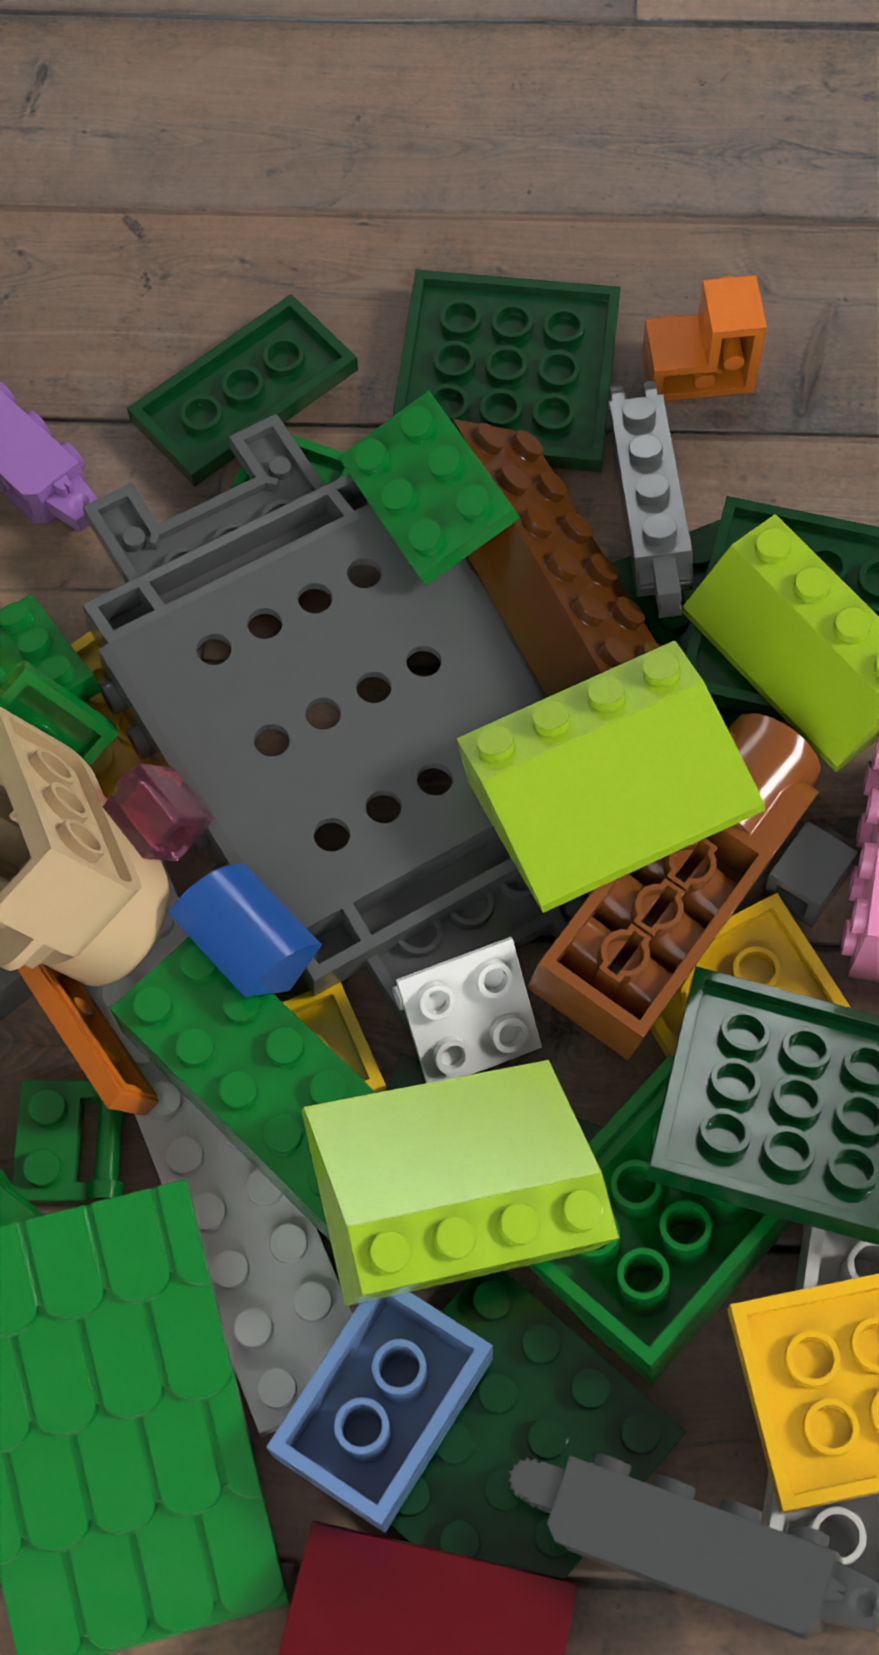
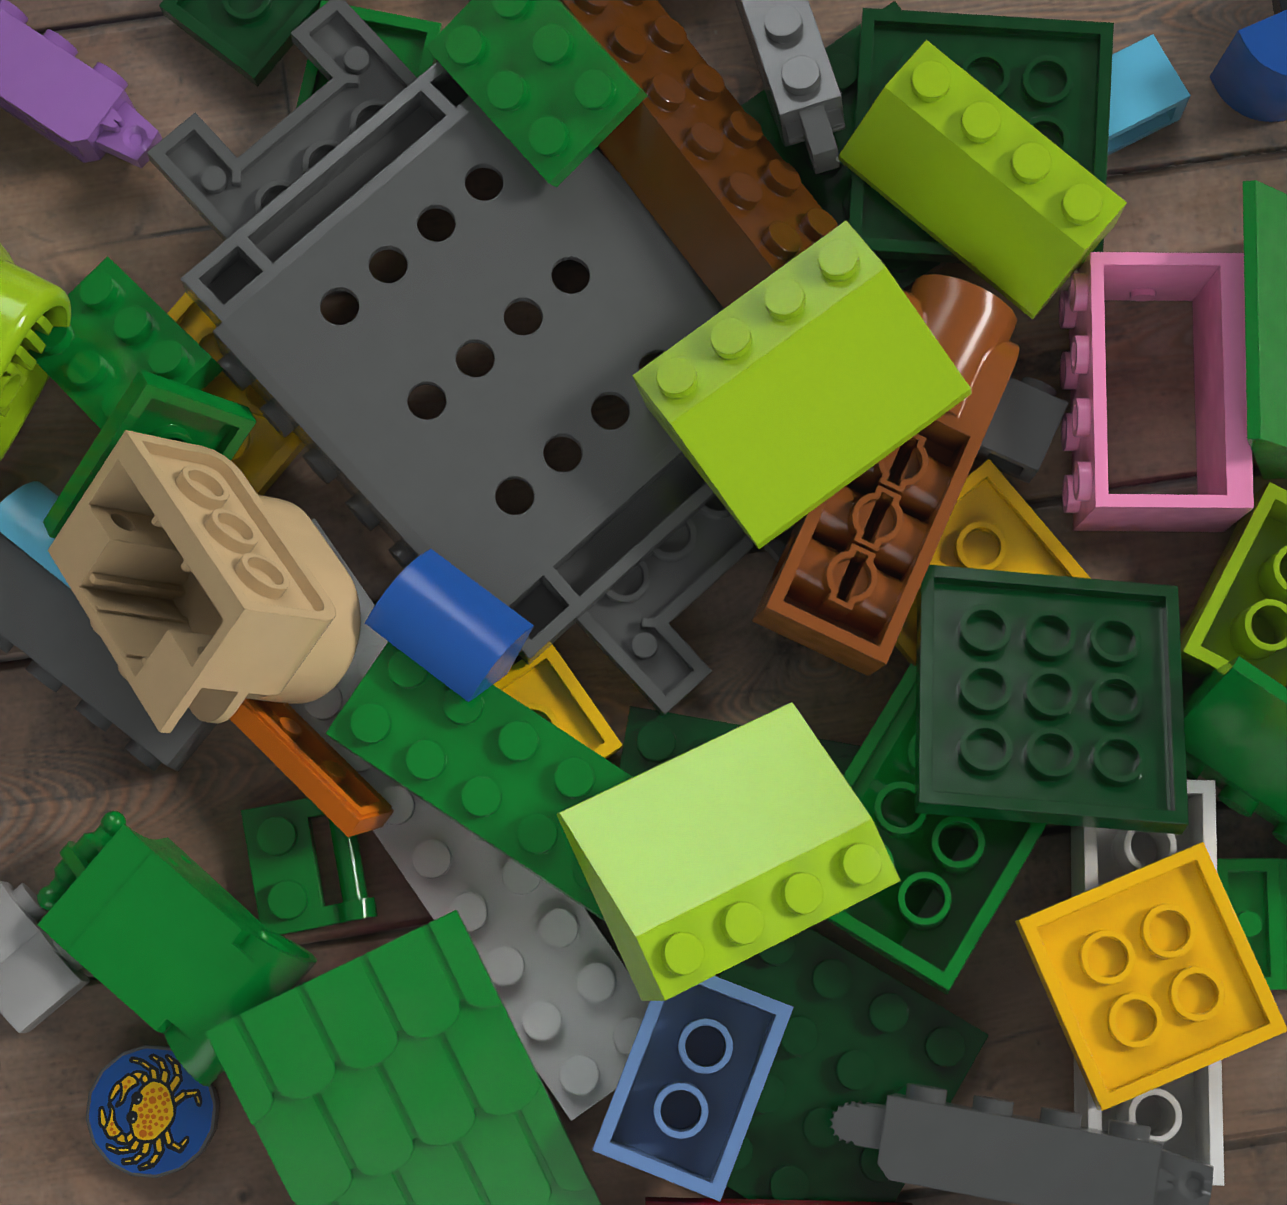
camera: 15 degrees left, 15 degrees up
(157, 812) = (324, 508): clear pink brick -> none
(469, 1012) = (695, 658): white hinge -> none

